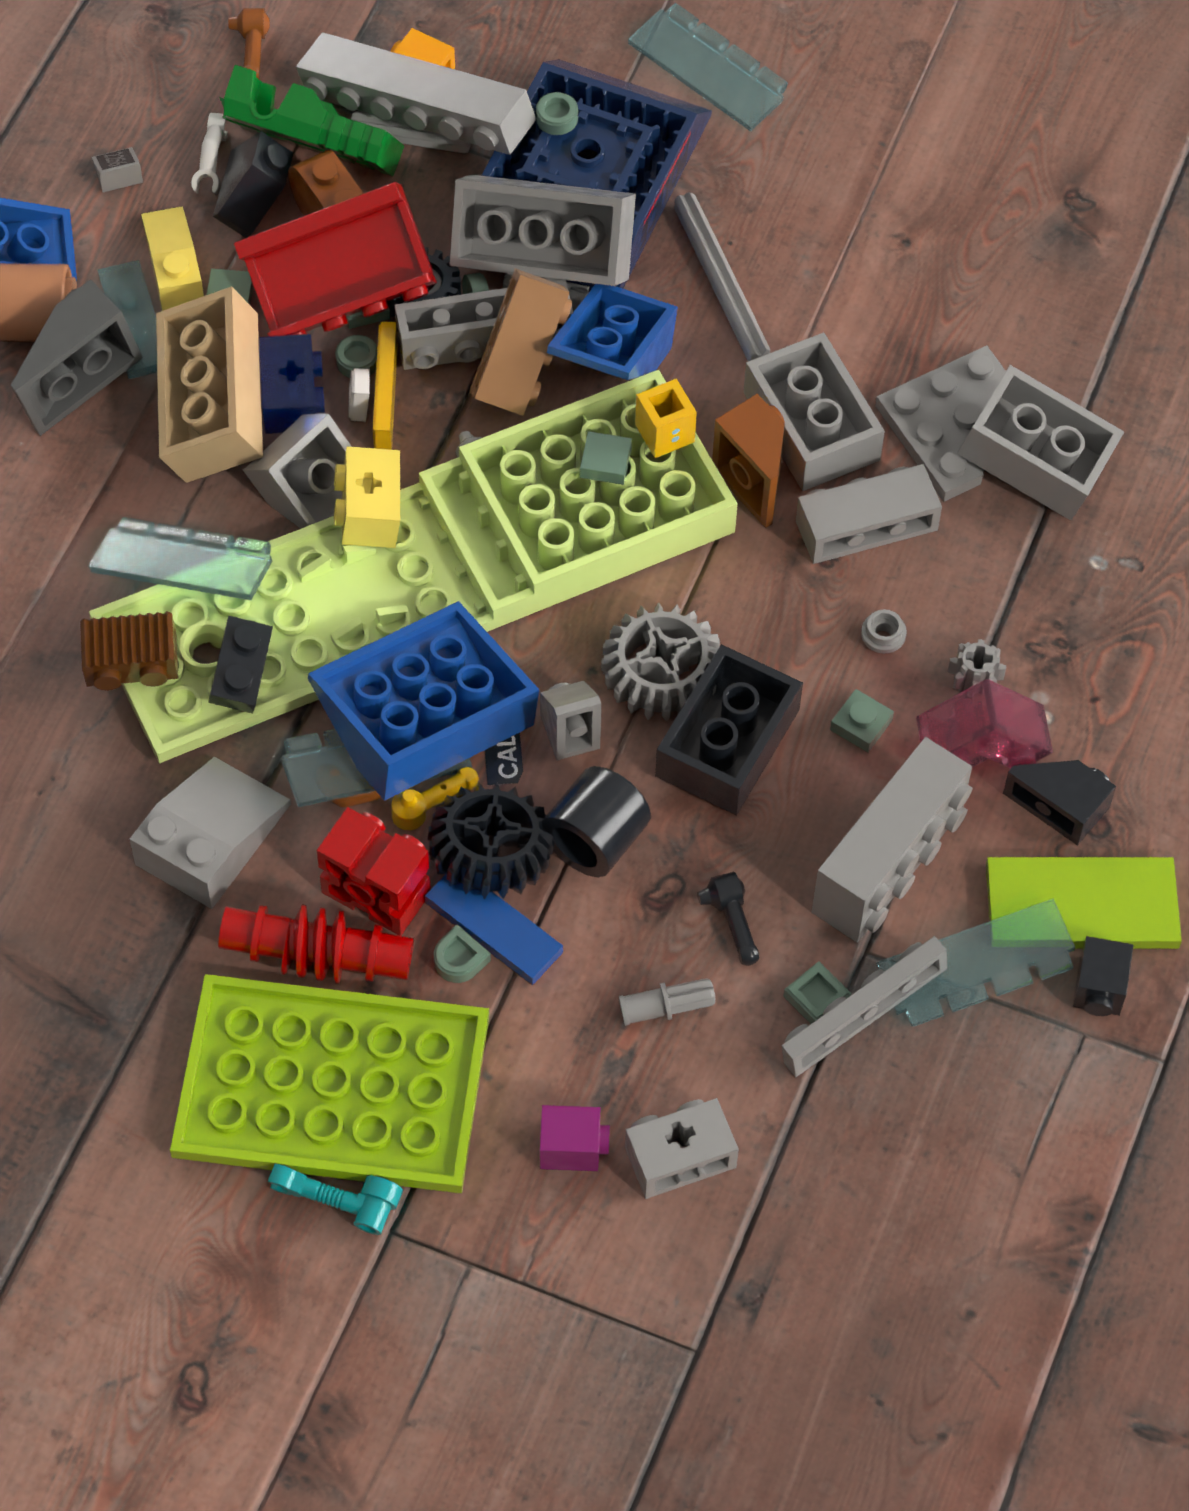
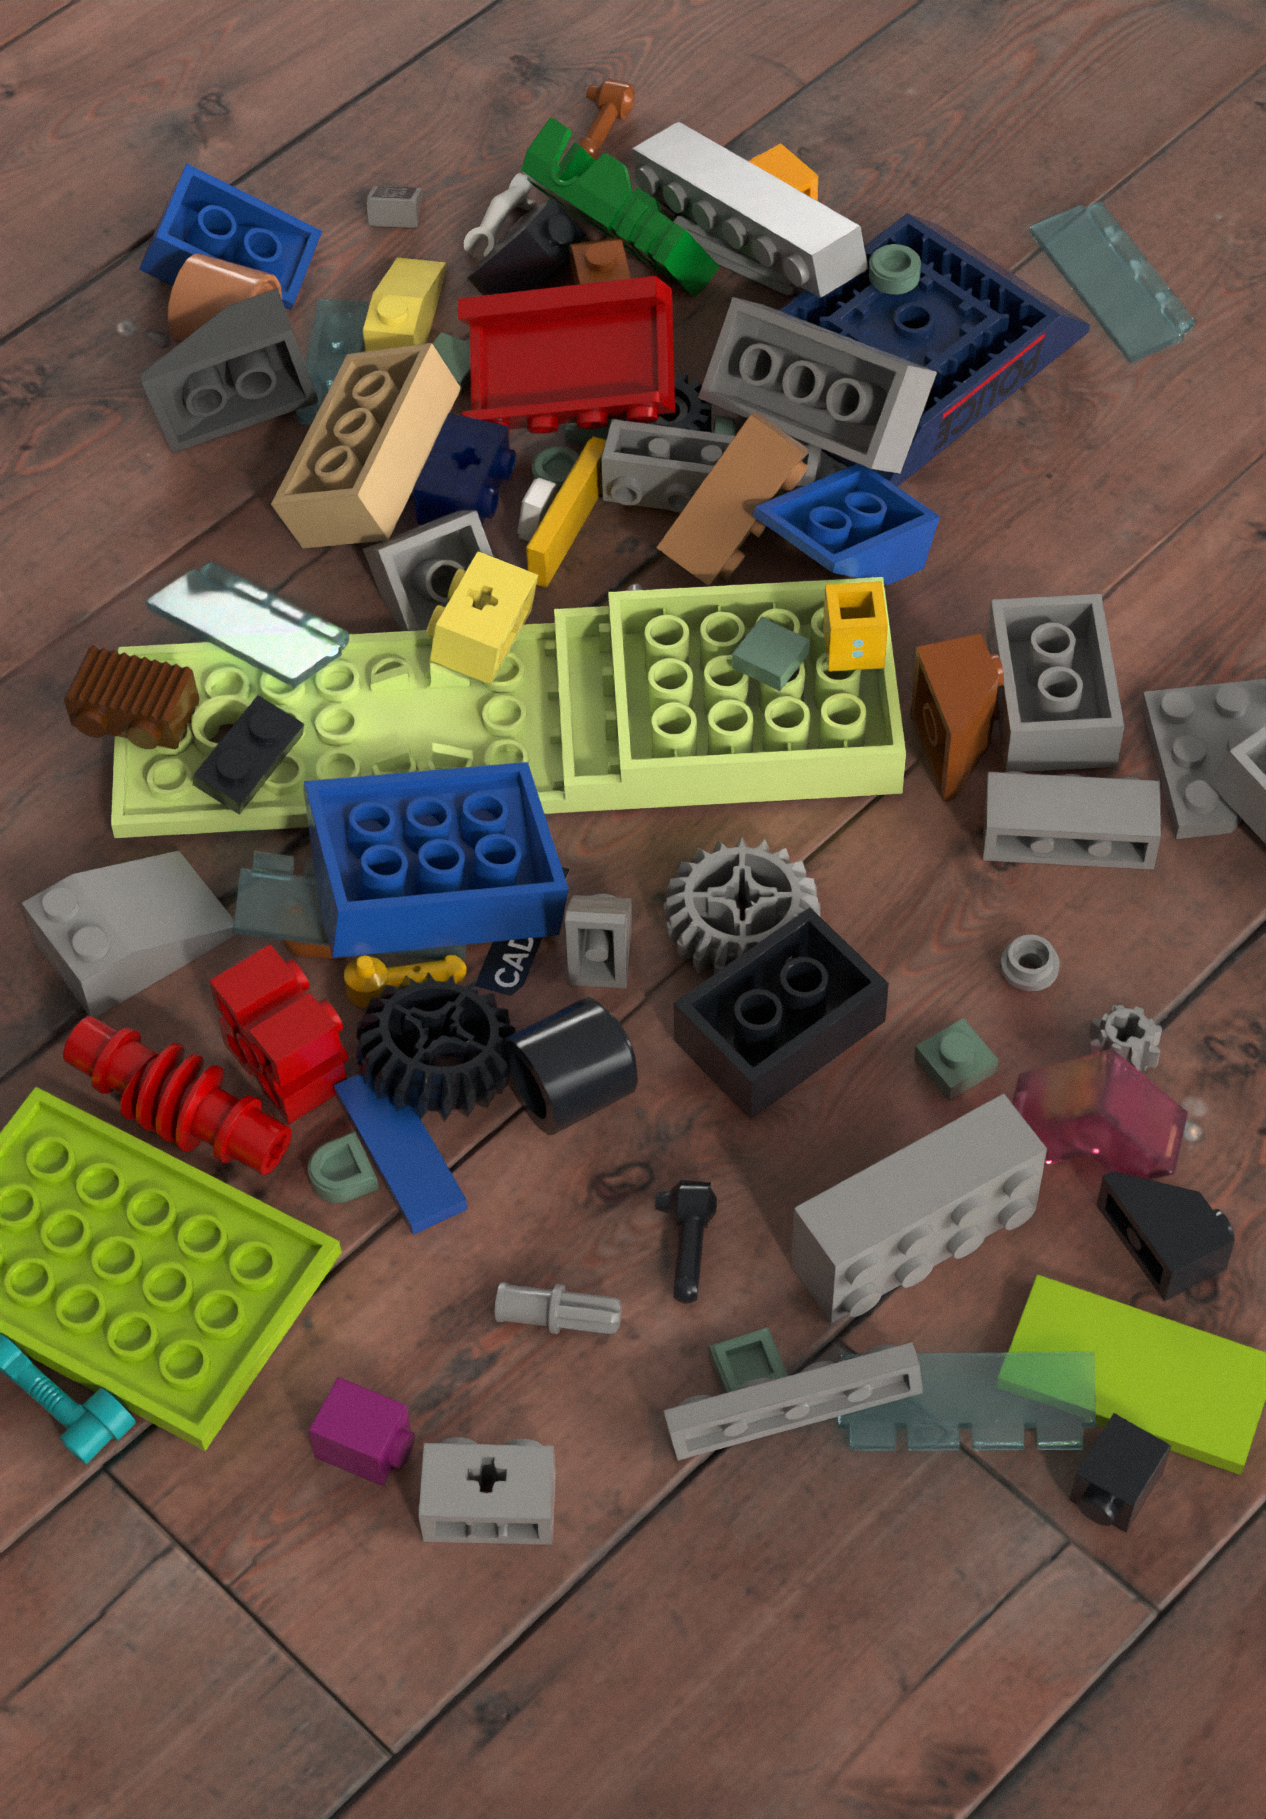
camera: 25 degrees right, 5 degrees down
(721, 276) = (1018, 502): light grey axle -> none

